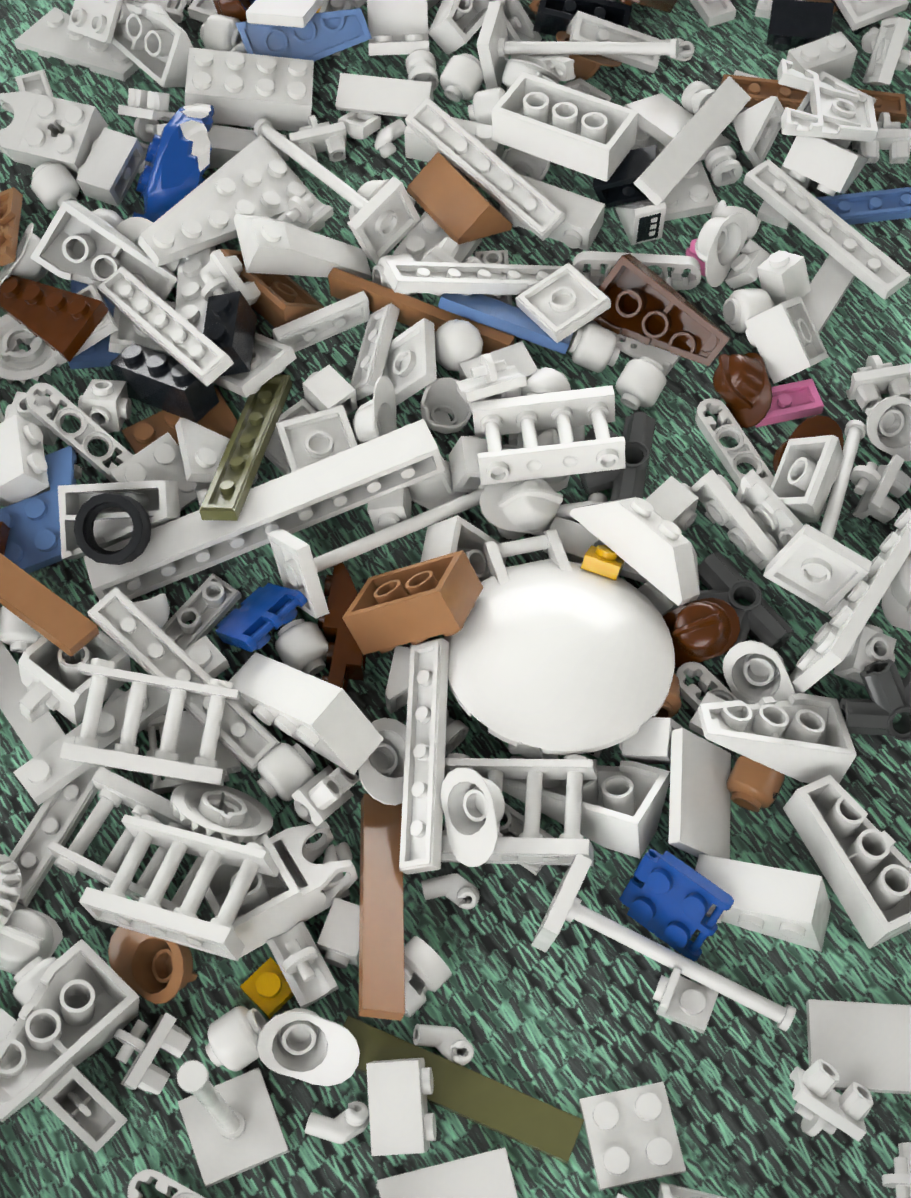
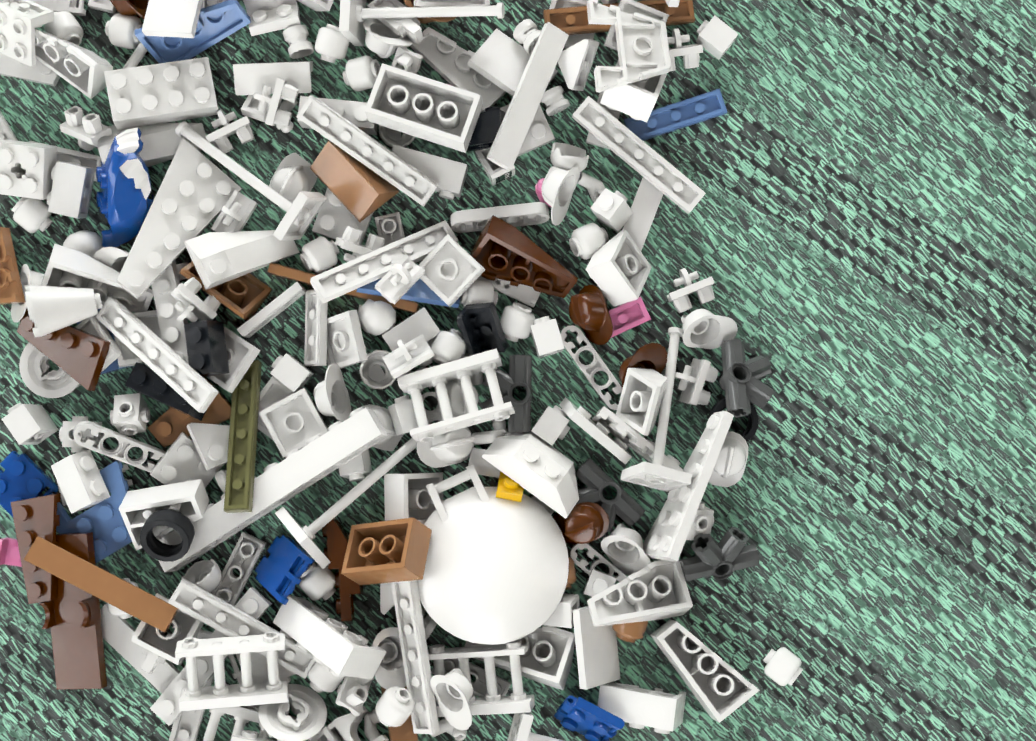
camera: 15 degrees left, 25 degrees up
(58, 257) = (59, 307): none -> white cone
(379, 108) = (275, 114): none -> white hips
(379, 816) = (394, 706): none -> white head
(498, 290) = (399, 279): none -> white hips
(594, 366) = (481, 328): none -> black bracket
(680, 397) = (546, 337): none -> white brick
(745, 269) = (582, 201): white plate -> none

